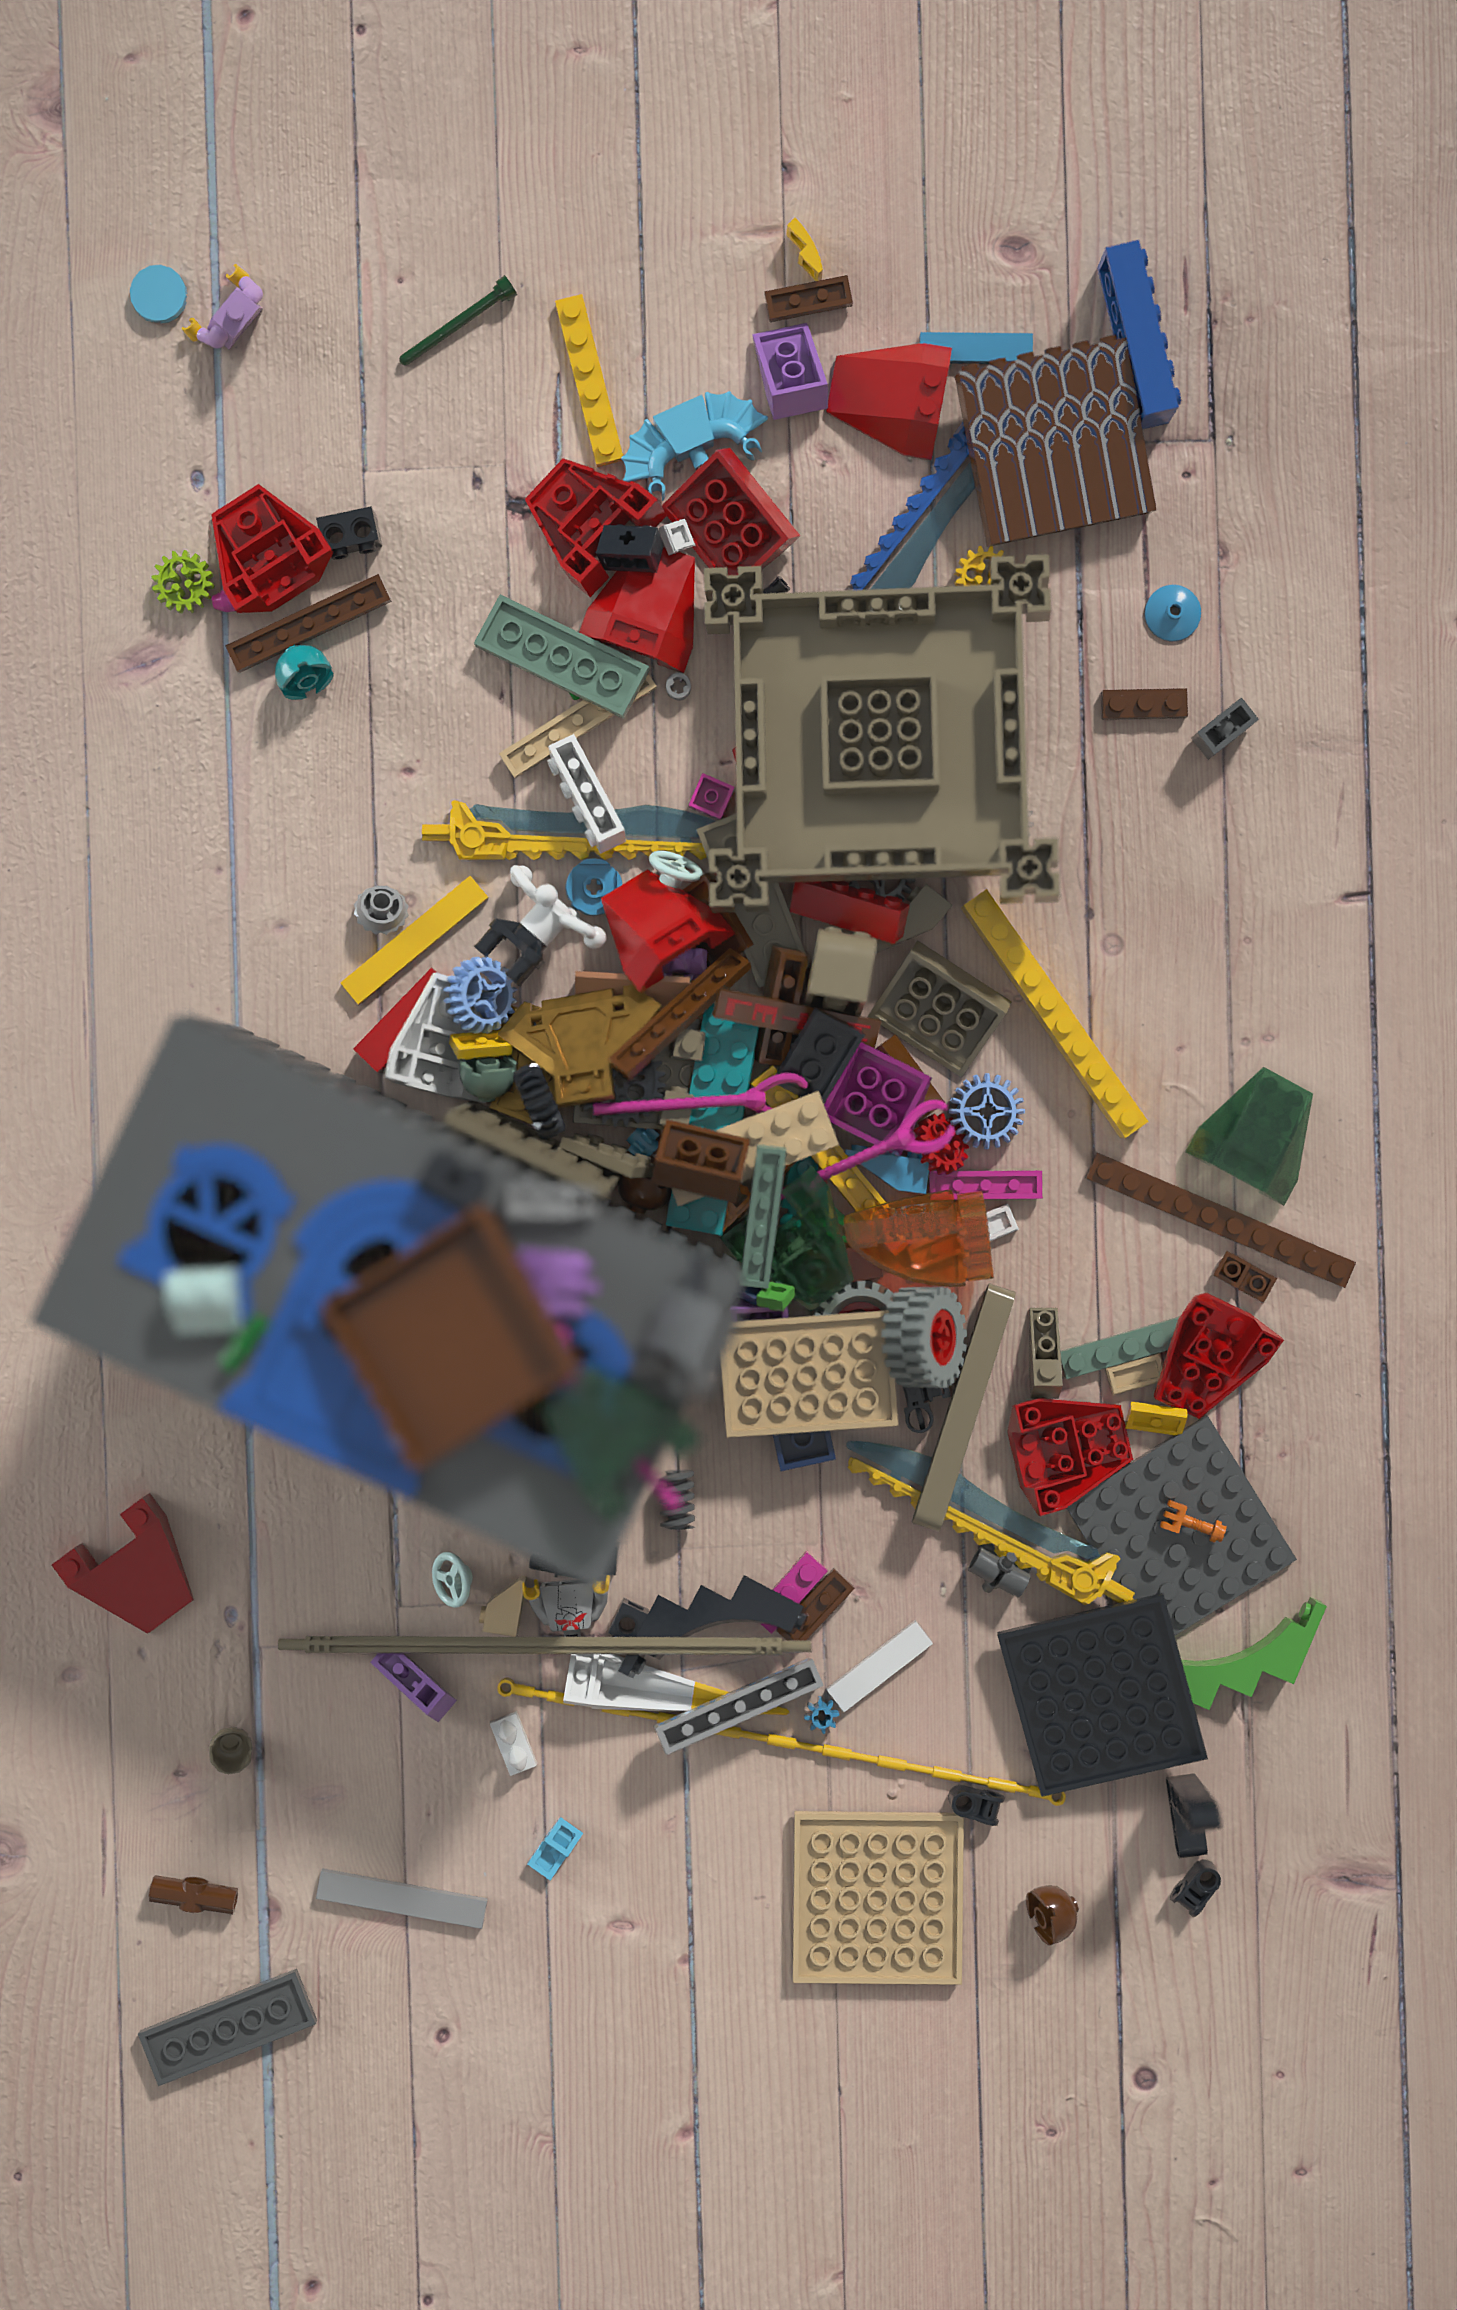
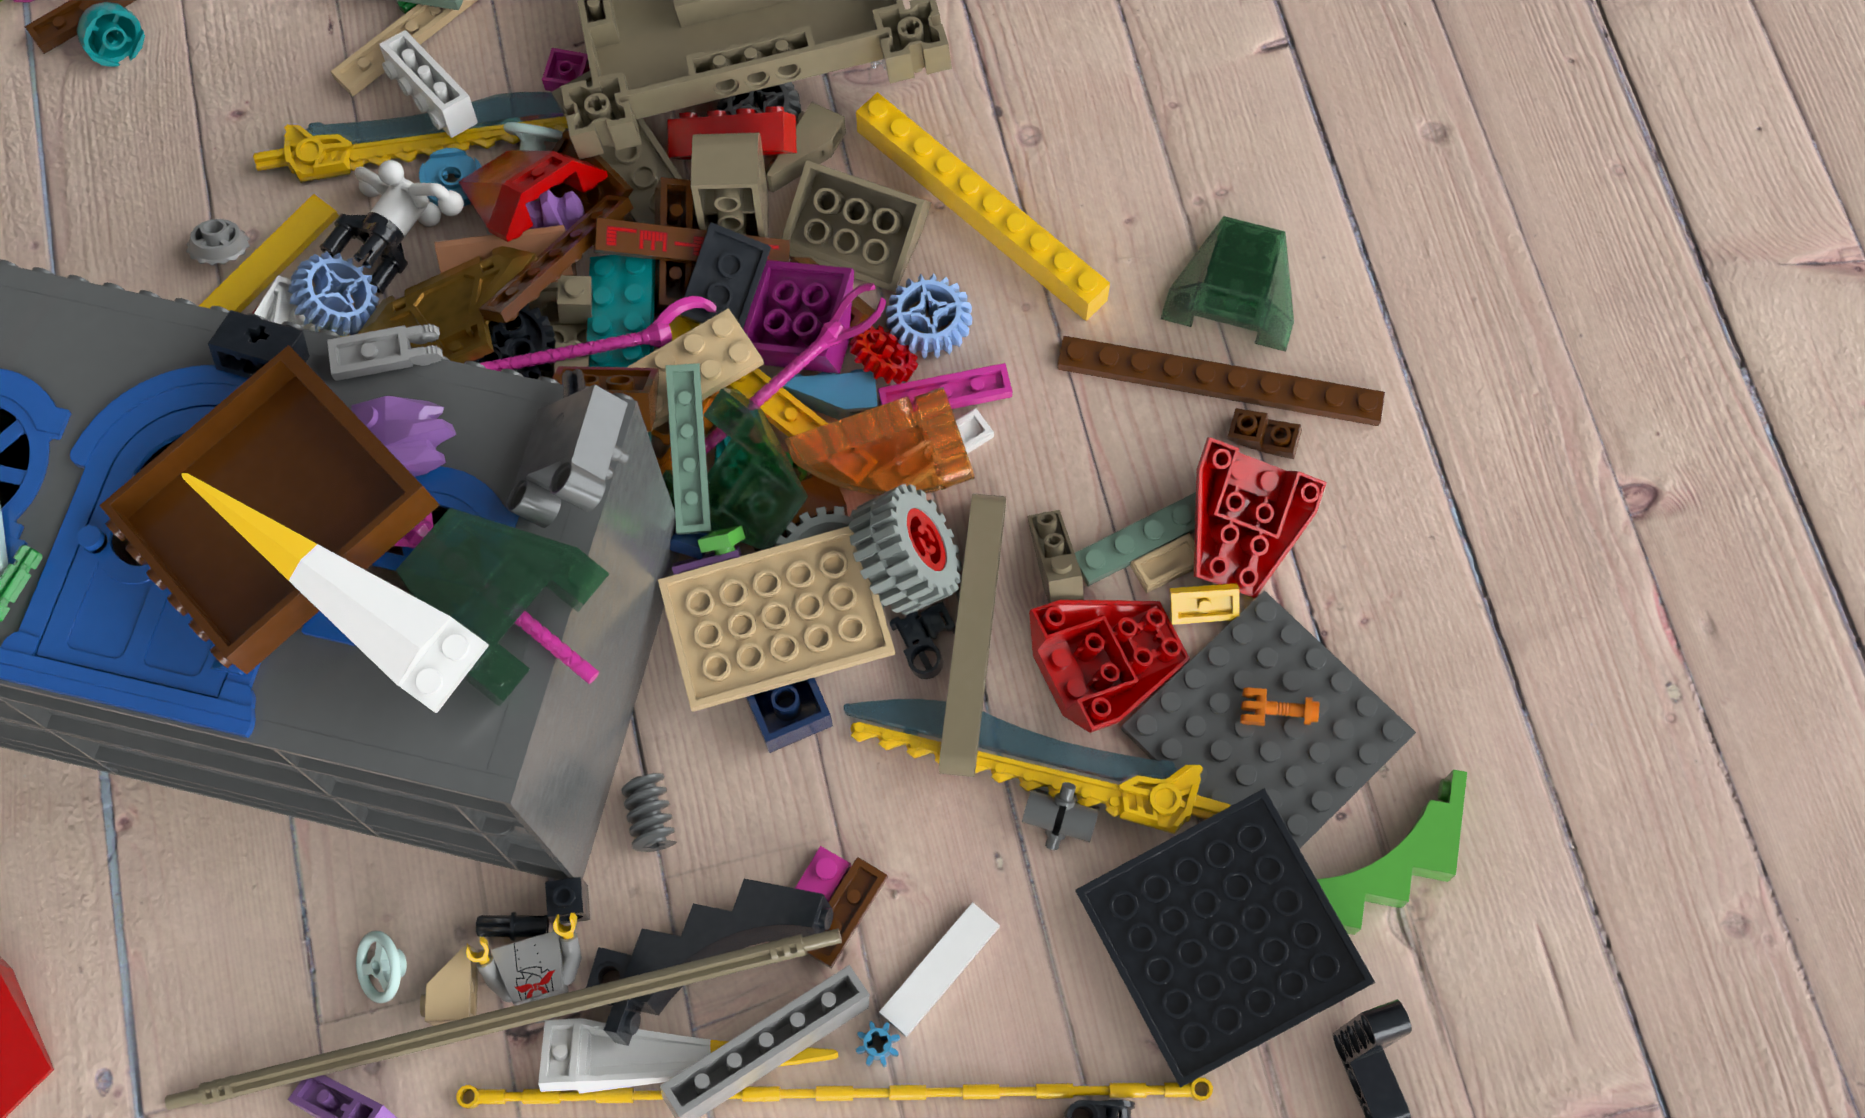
camera: 10 degrees left, 20 degrees down
(542, 1471) = (401, 634): none -> white plate

